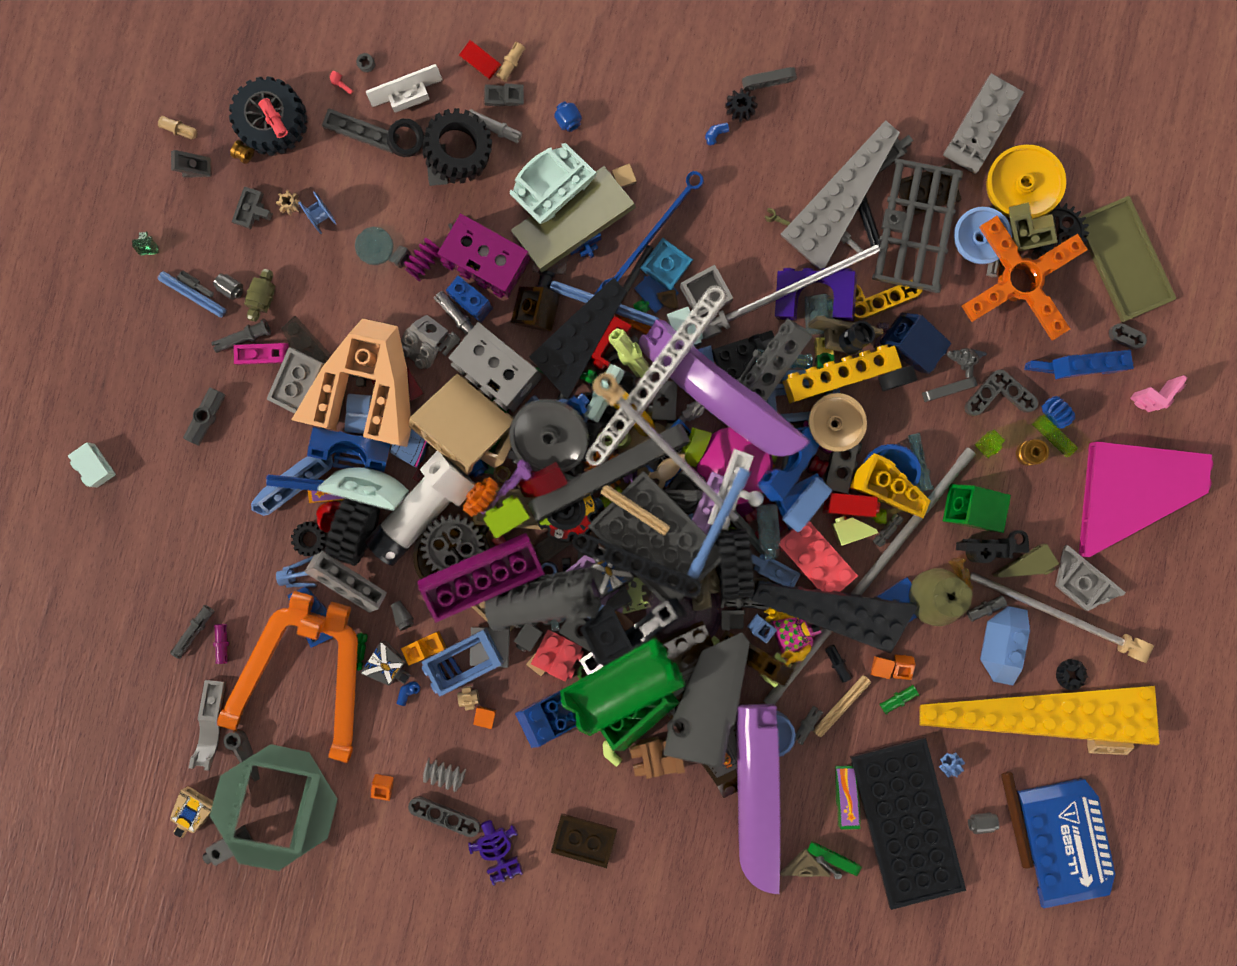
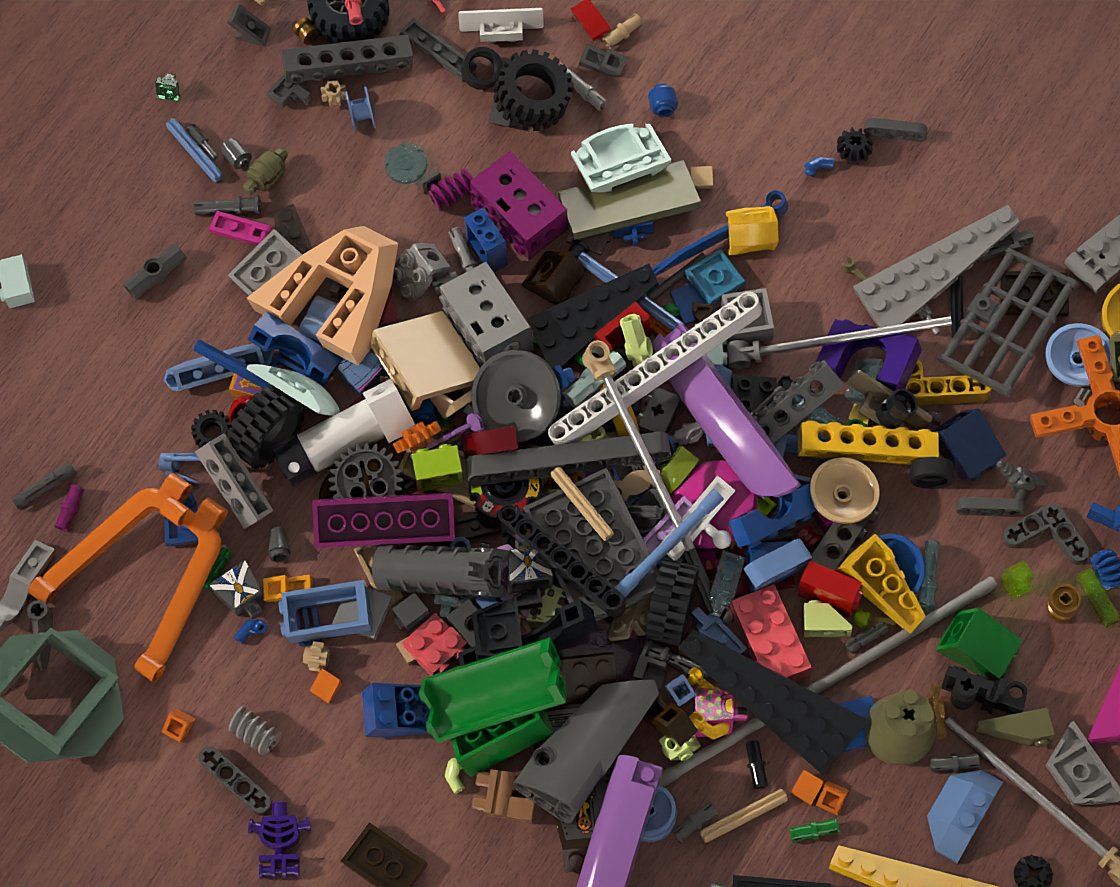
camera: 20 degrees right, 20 degrees down
(277, 166) = (355, 51): none -> dark grey brick
(684, 213) = (752, 230): none -> yellow slope

